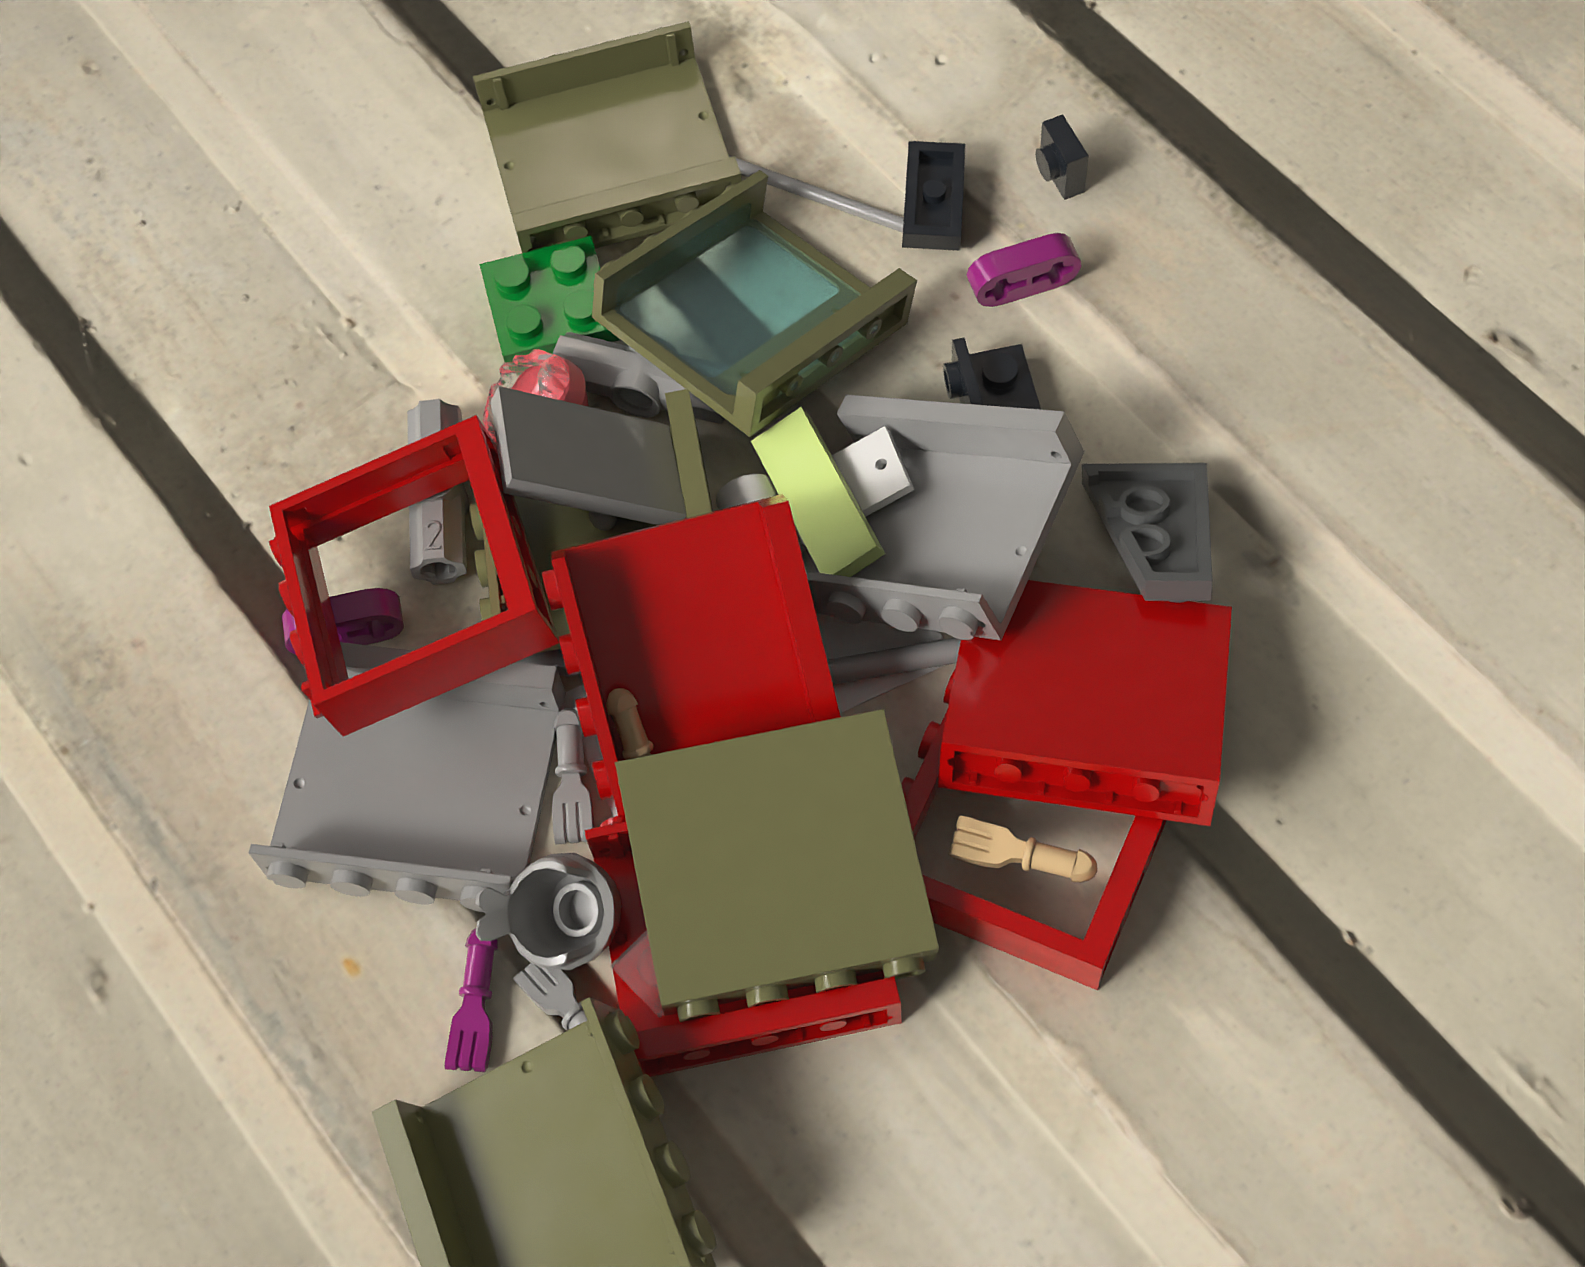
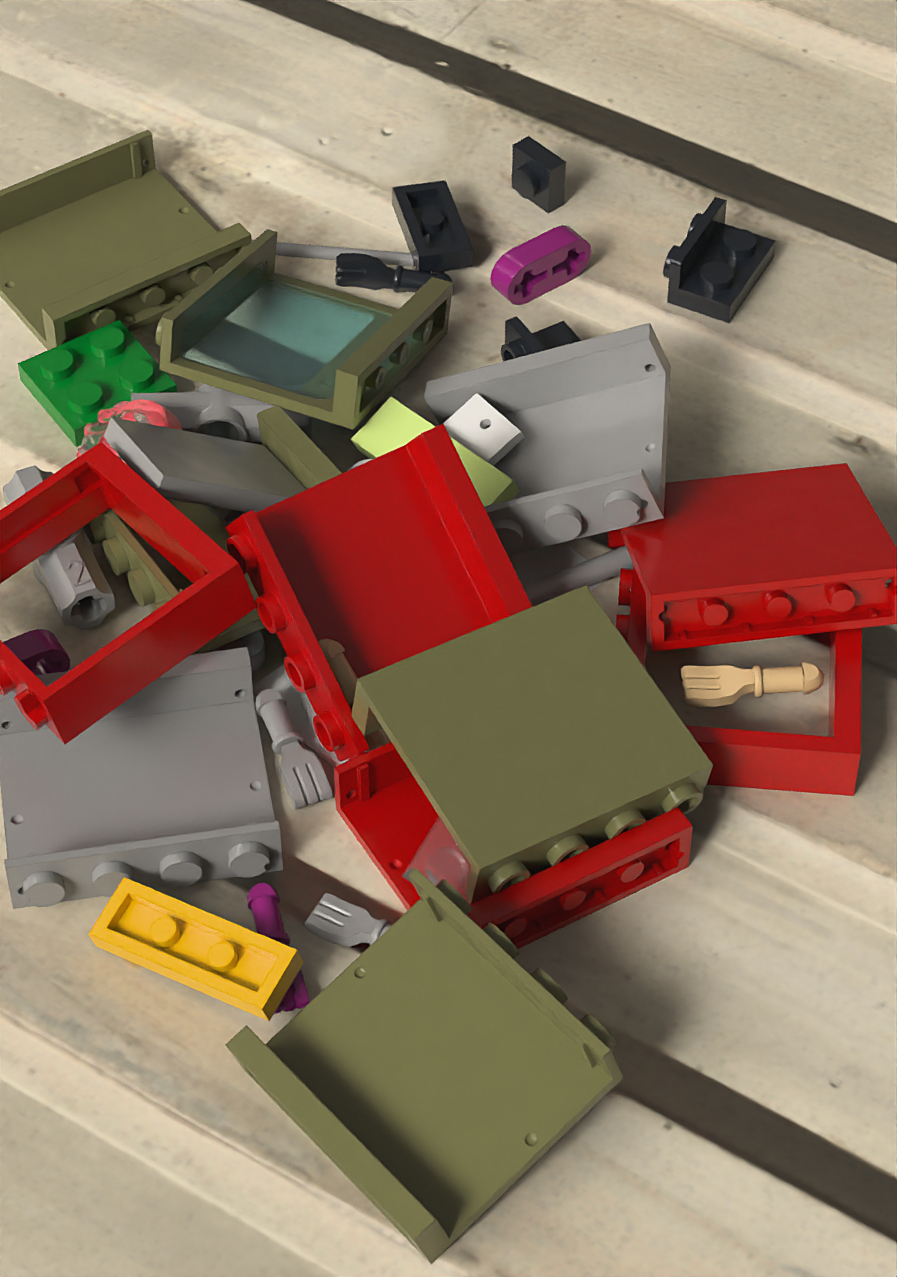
camera: 25 degrees left, 15 degrees down
(396, 986) = (196, 948): none -> yellow plate
(555, 911) = (332, 841): light grey hat -> none
(853, 235) = (373, 274): none -> black piece
(1157, 524) = (753, 420): dark grey wing -> none
(1207, 310) = (716, 265): none -> black bracket

